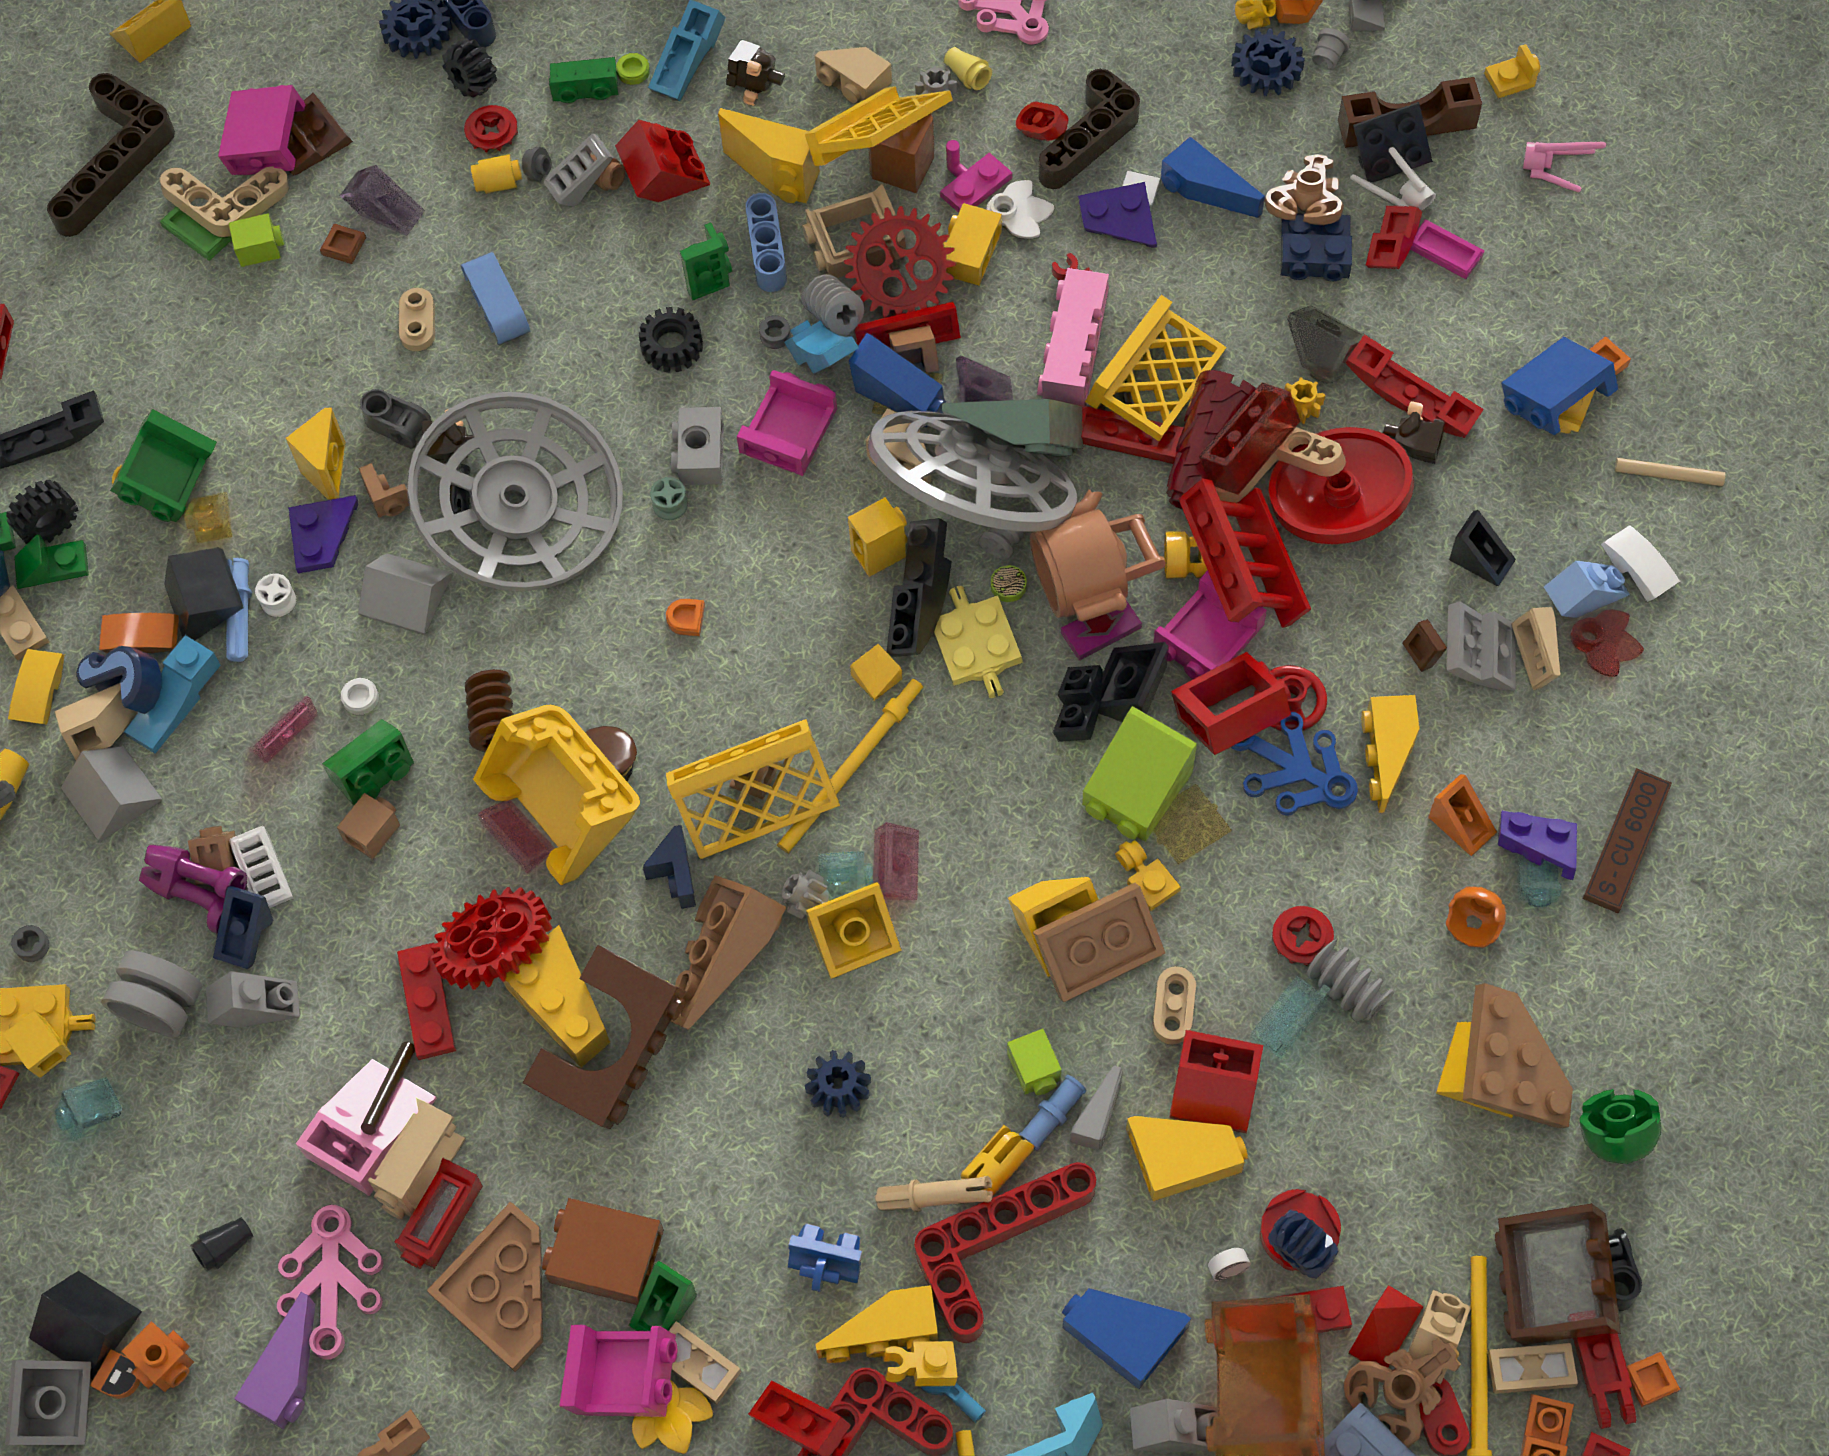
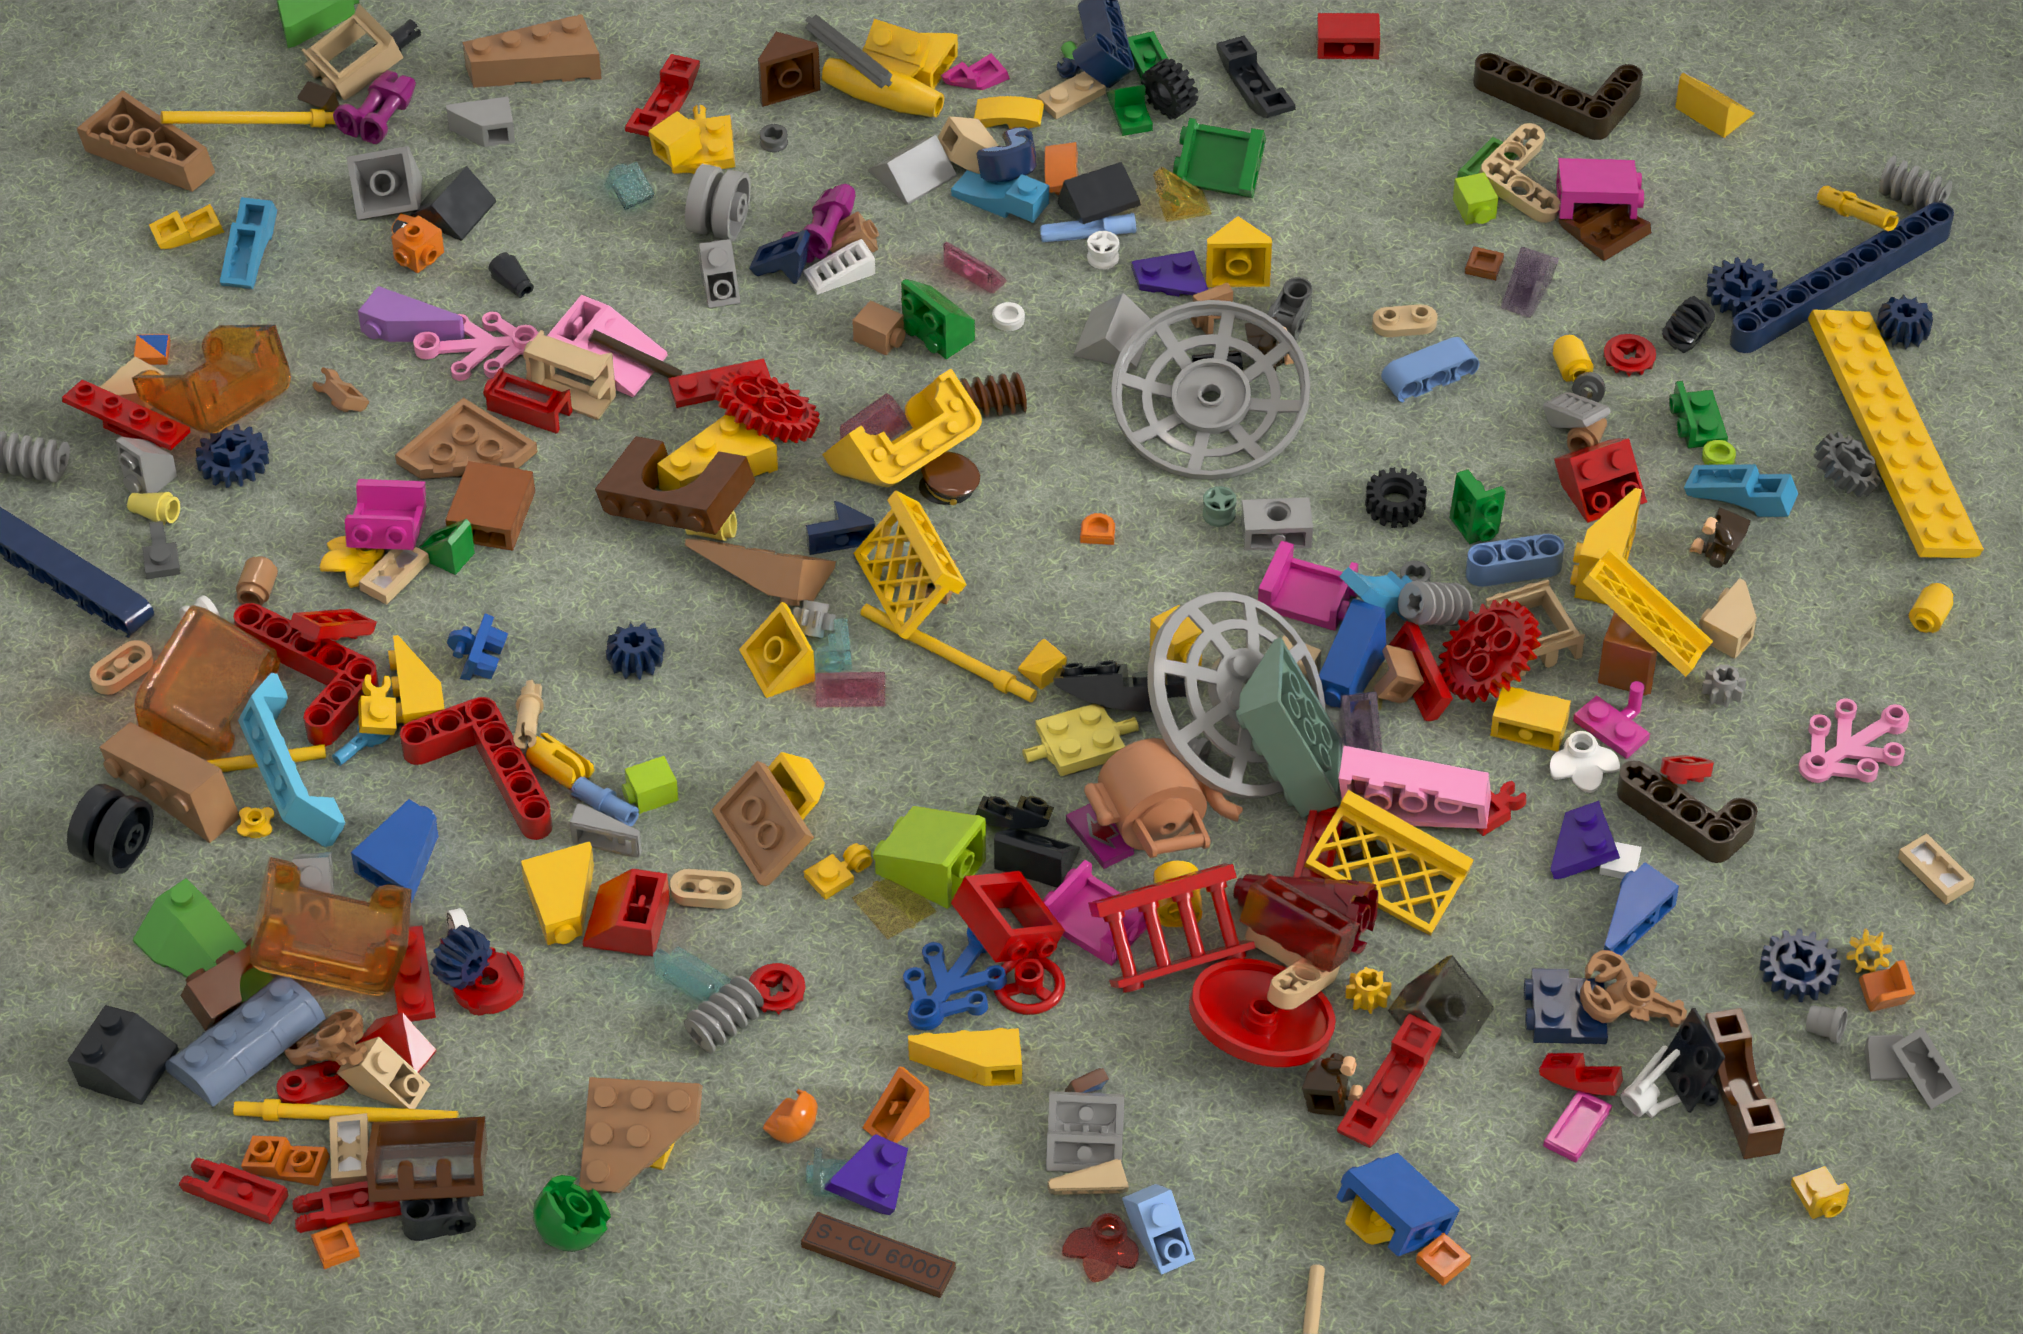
camera: 85 degrees right, 15 degrees down
(968, 68) = (1754, 713): light yellow cone -> none
(1481, 550) = (1199, 1134): black slope -> none
(1541, 154) = (1706, 1213): bright pink plant -> none
(1647, 567) = (1192, 1276): white slope -> none

